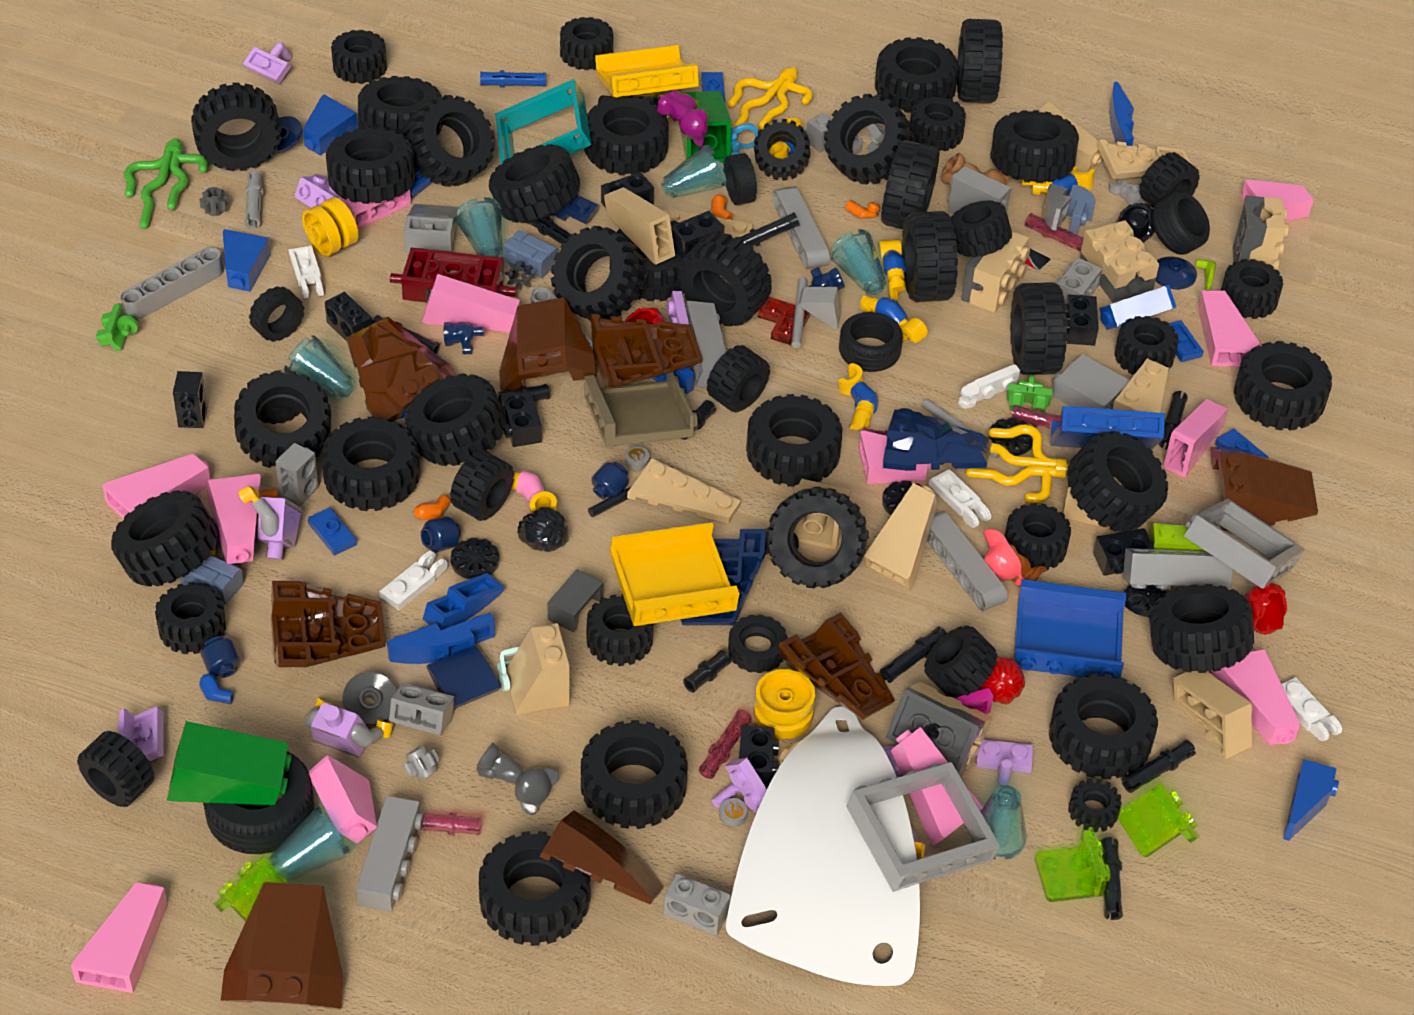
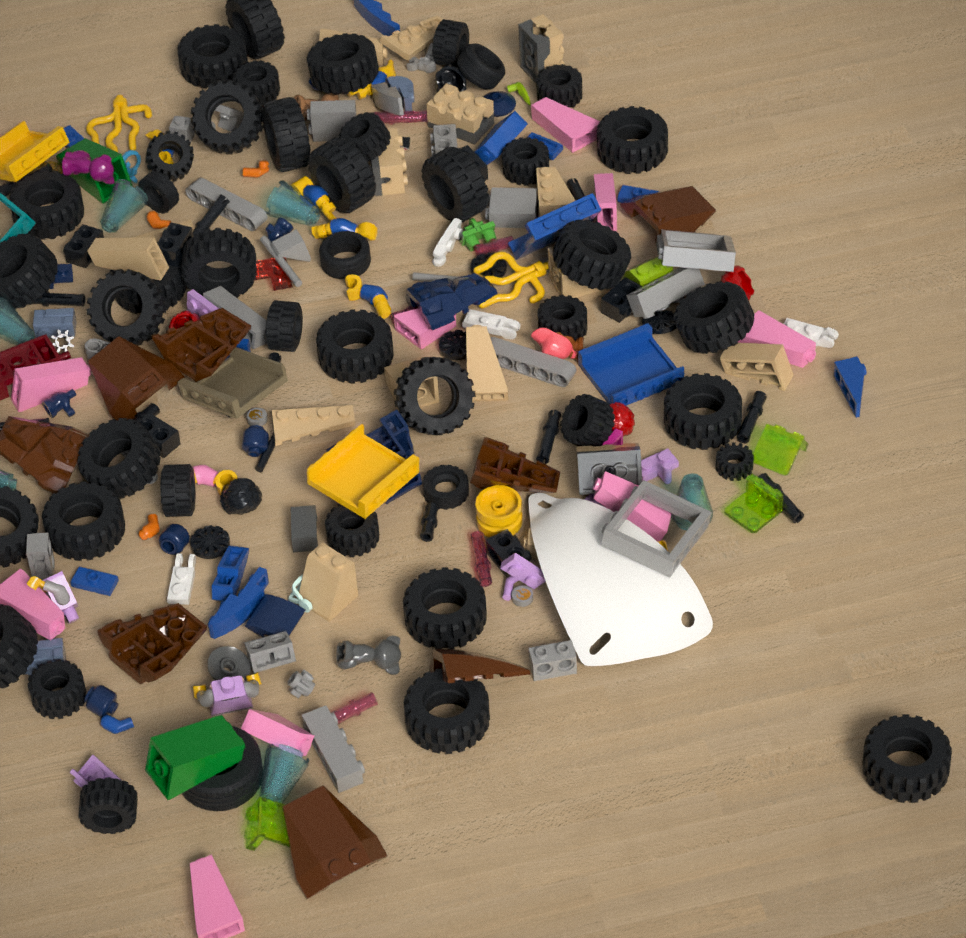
camera: 30 degrees left, 0 degrees up
(1294, 197) = (508, 21): bright pink slope -> none

